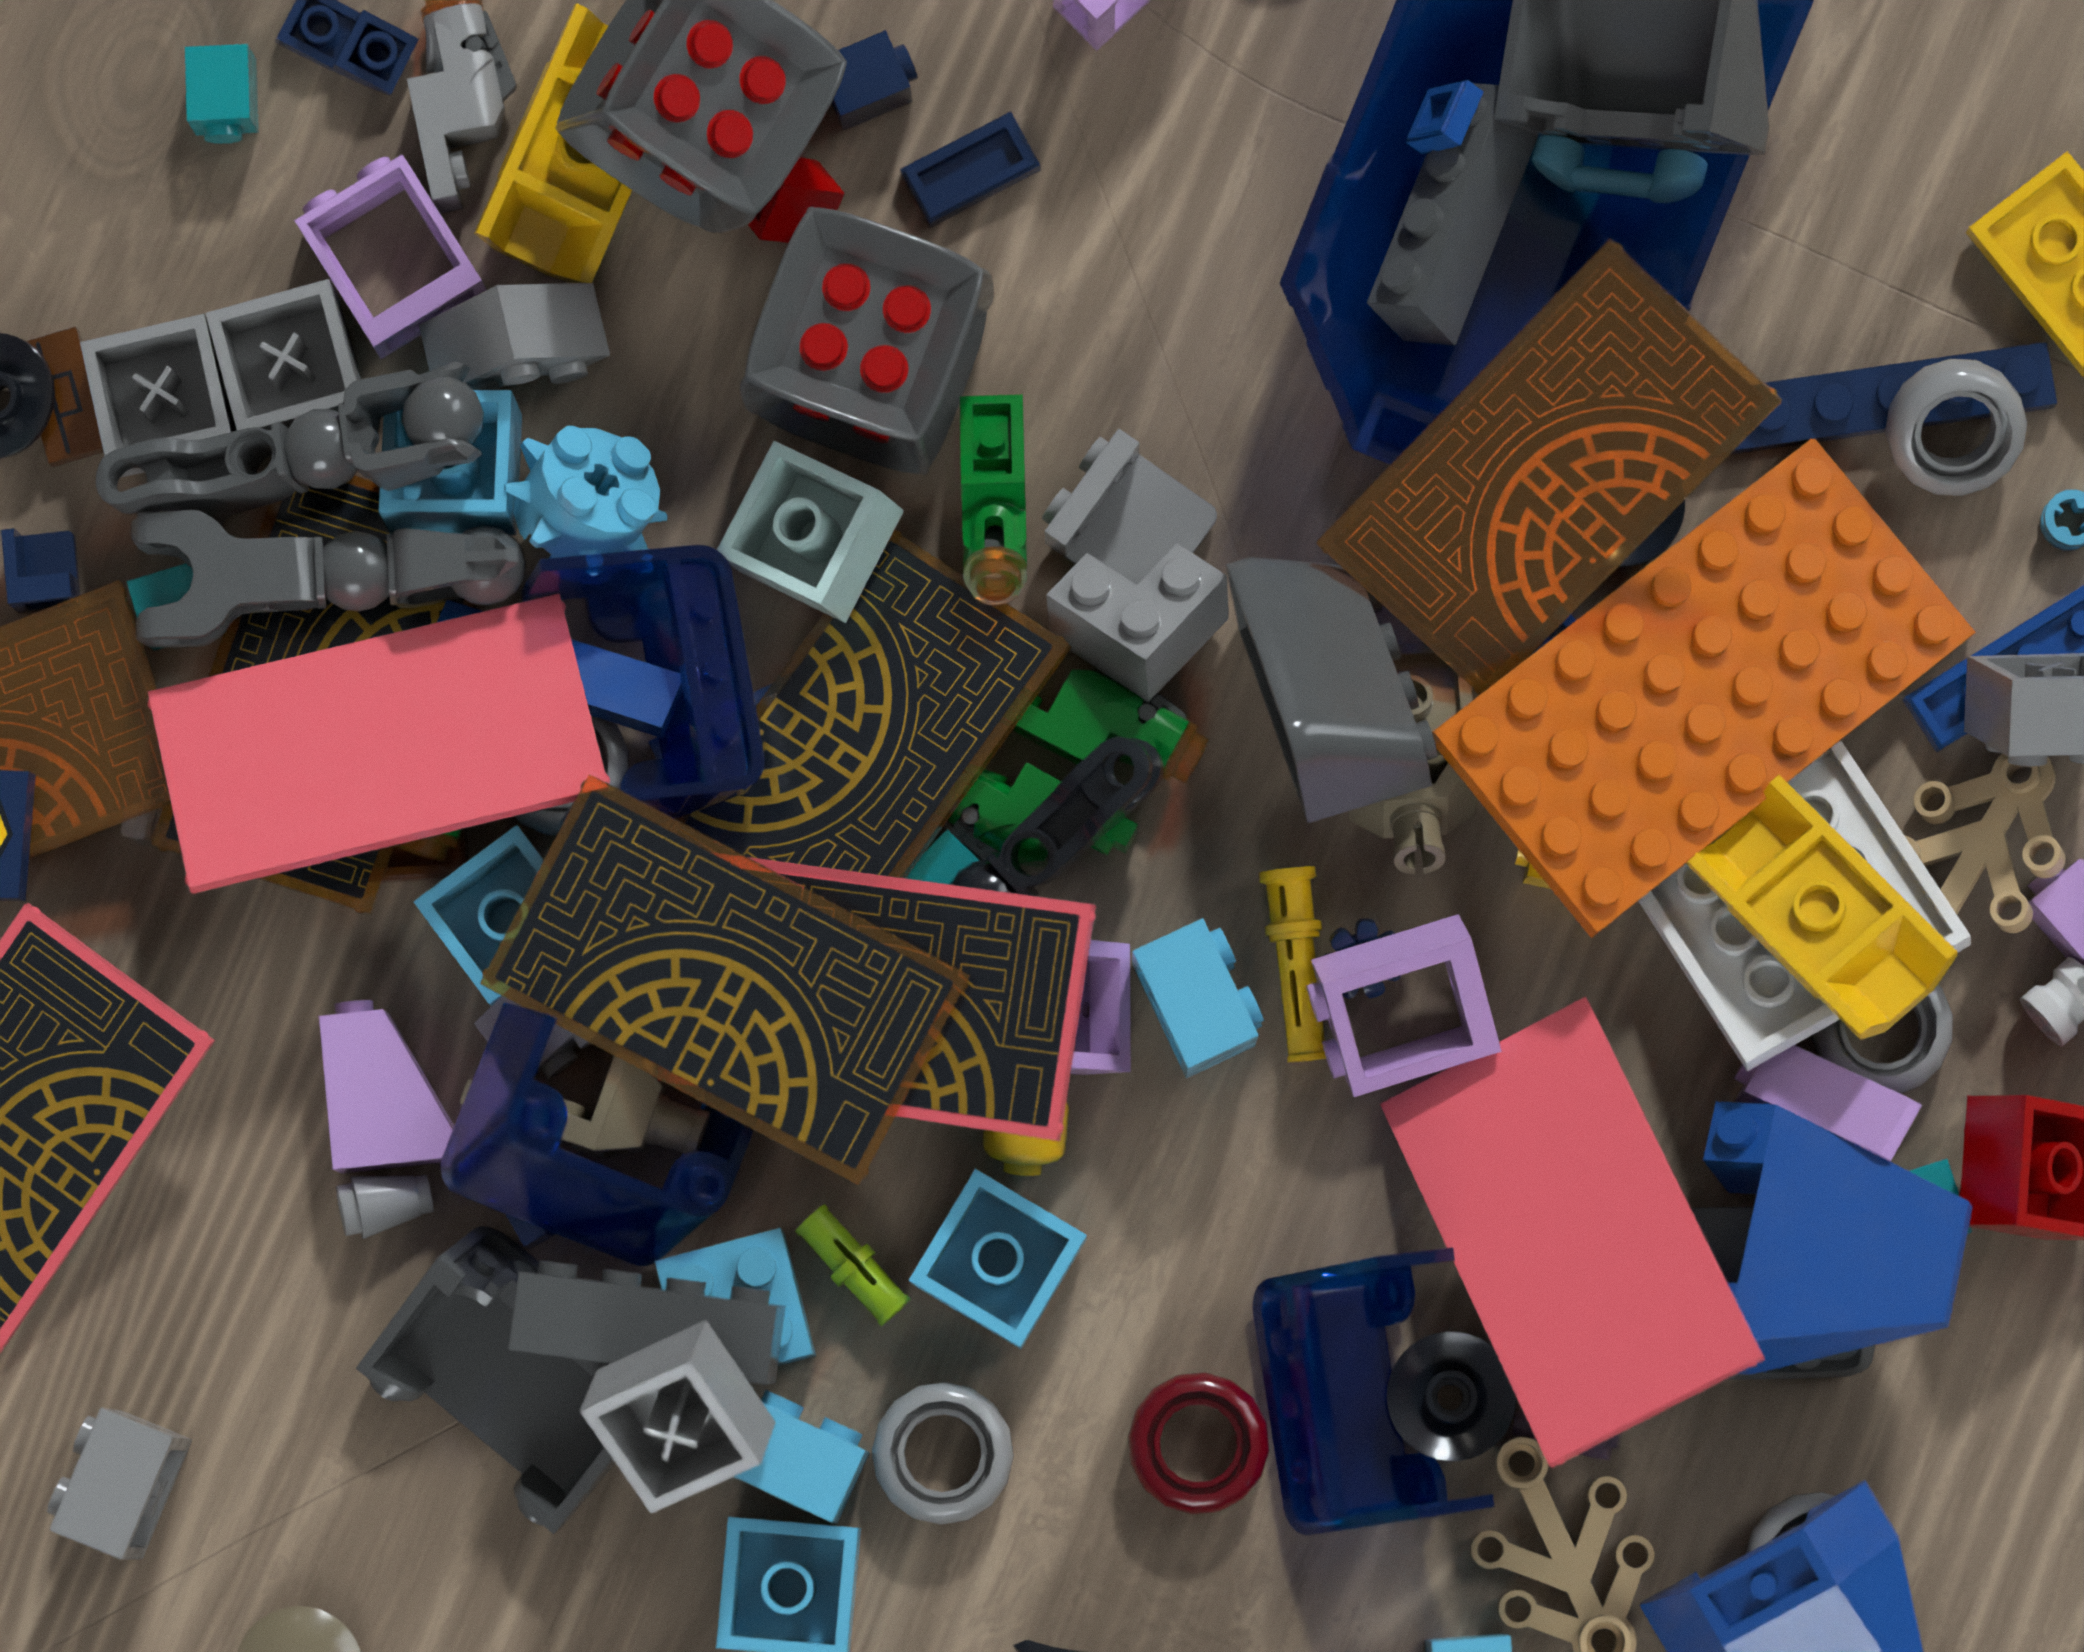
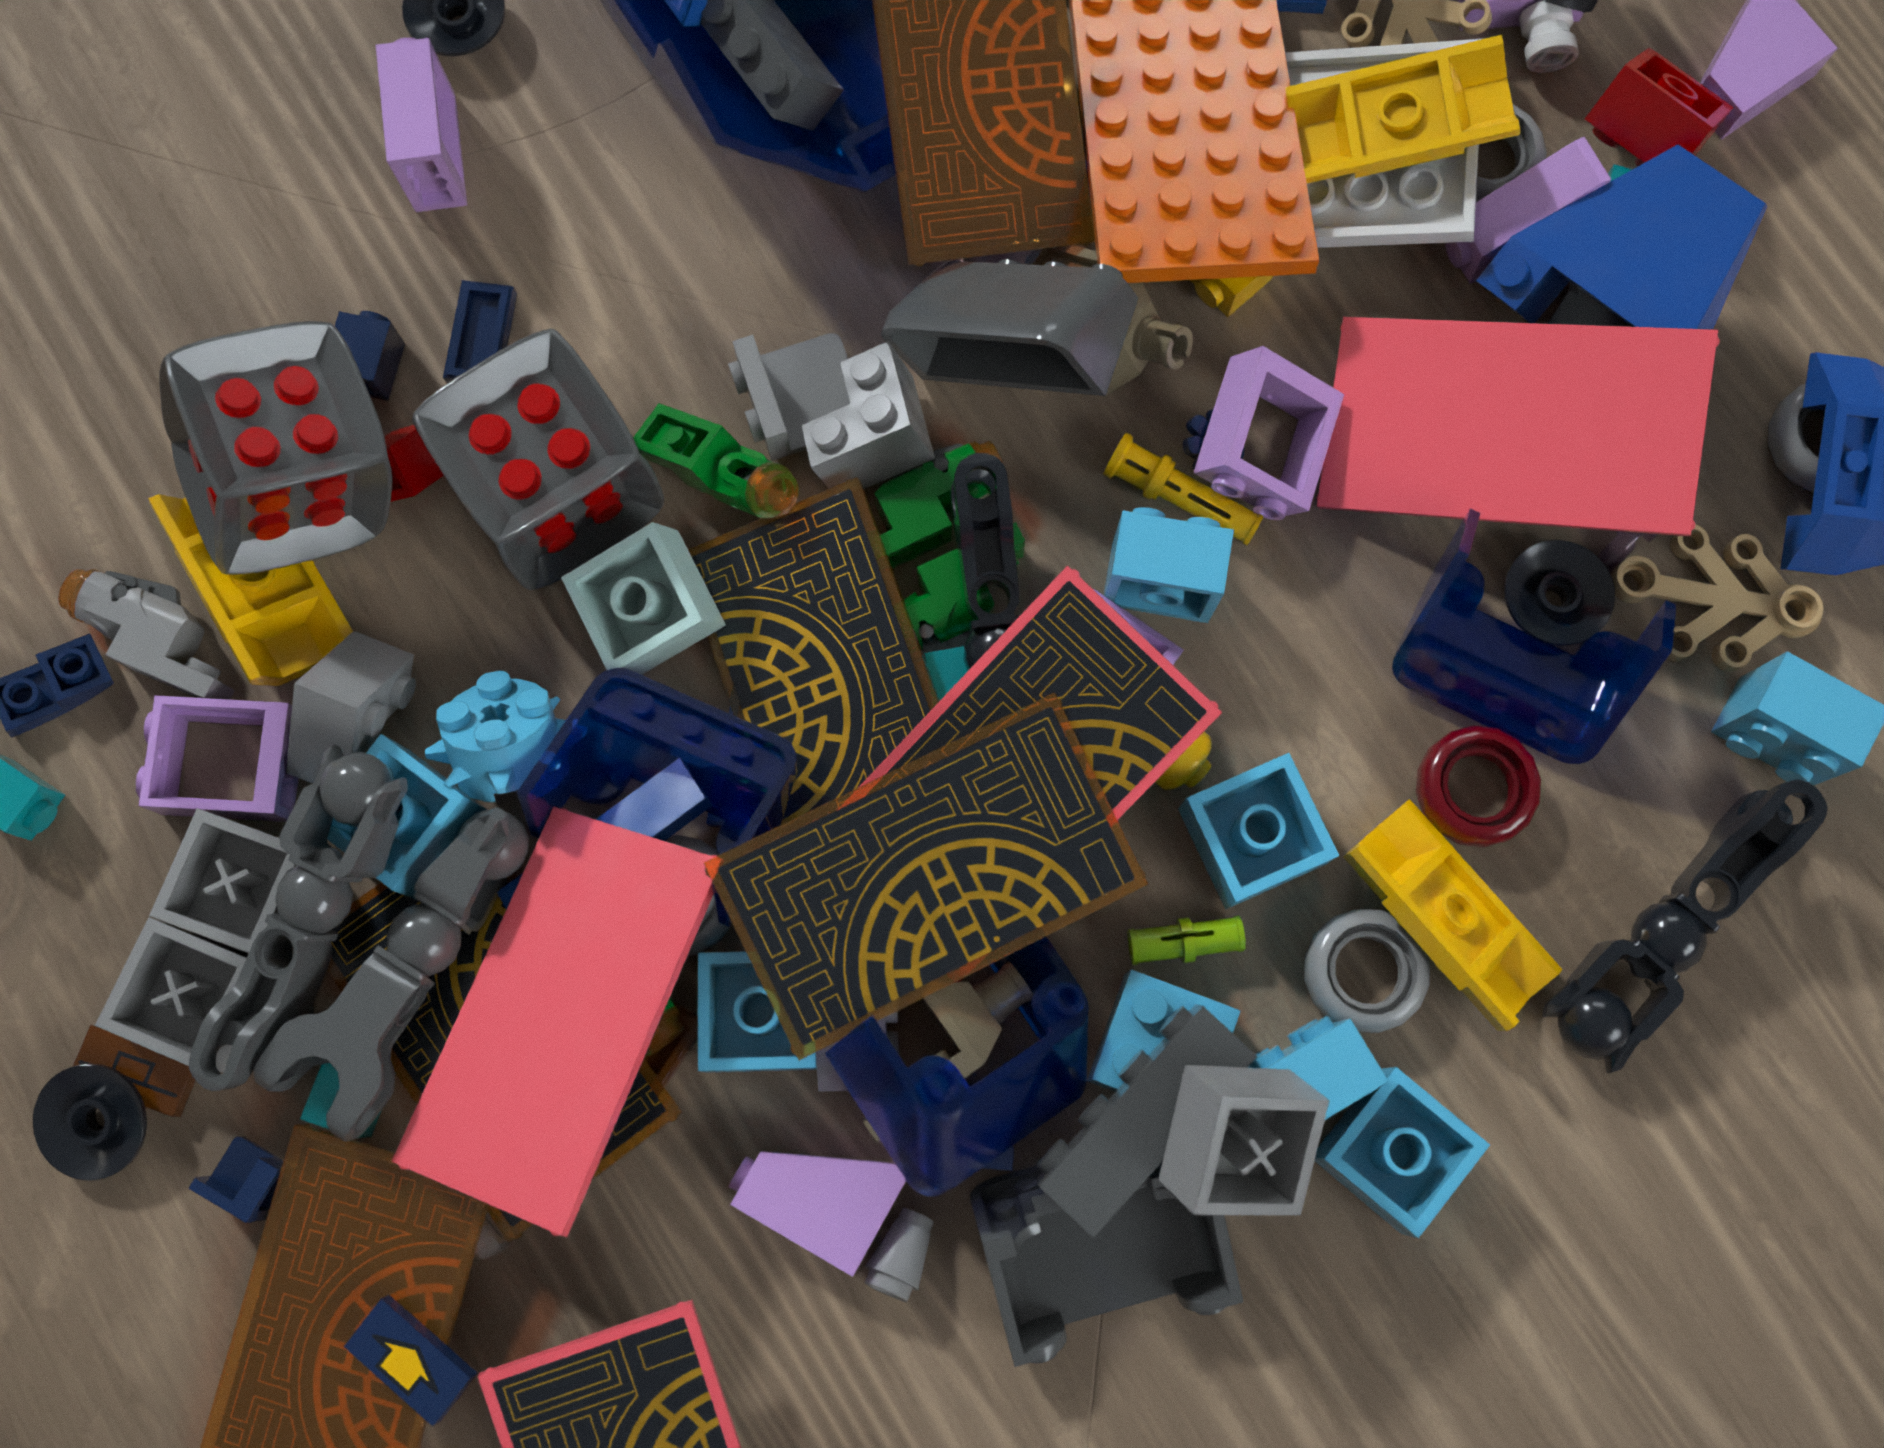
camera: 60 degrees left, 5 degrees down
(1050, 1496) = (1453, 915): none -> yellow piece

